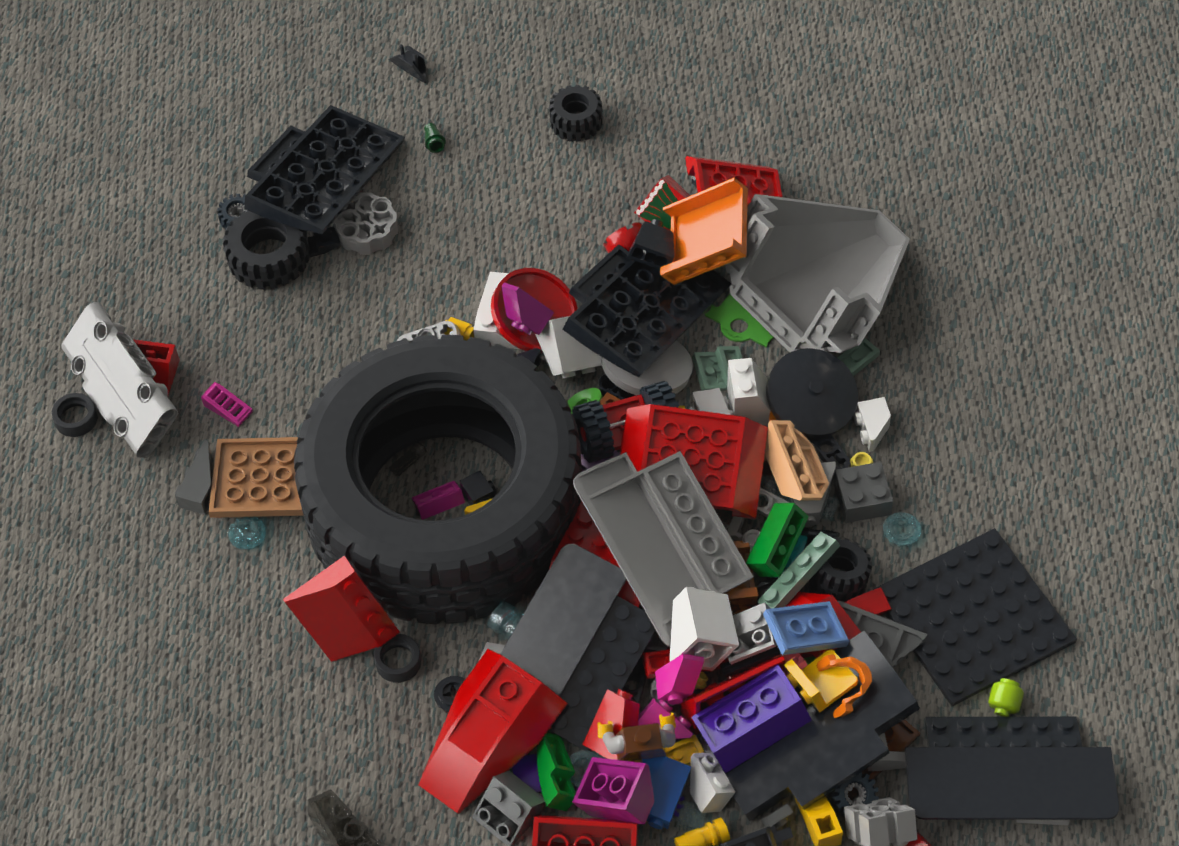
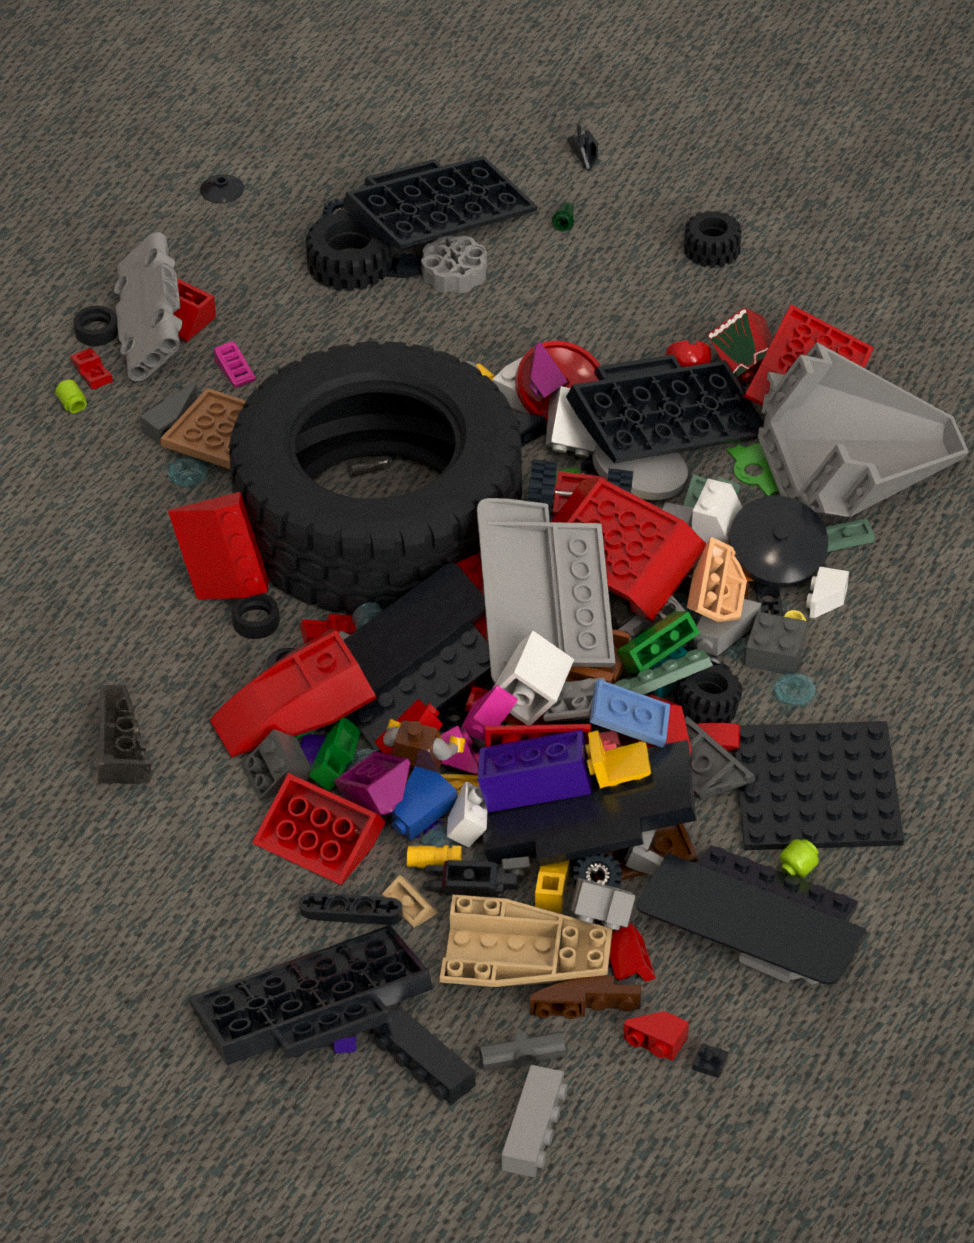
camera: 25 degrees right, 10 degrees down
(94, 498) = (71, 396): none -> lime brick
(95, 461) = (91, 369): none -> red slope
(110, 230) = (222, 188): none -> black dish
(469, 643) = (314, 628): none -> red slope
(653, 245) = (701, 363): black torso -> none
(707, 230) = (758, 363): orange panel -> none
(864, 676) = (649, 752): orange helmet -> none

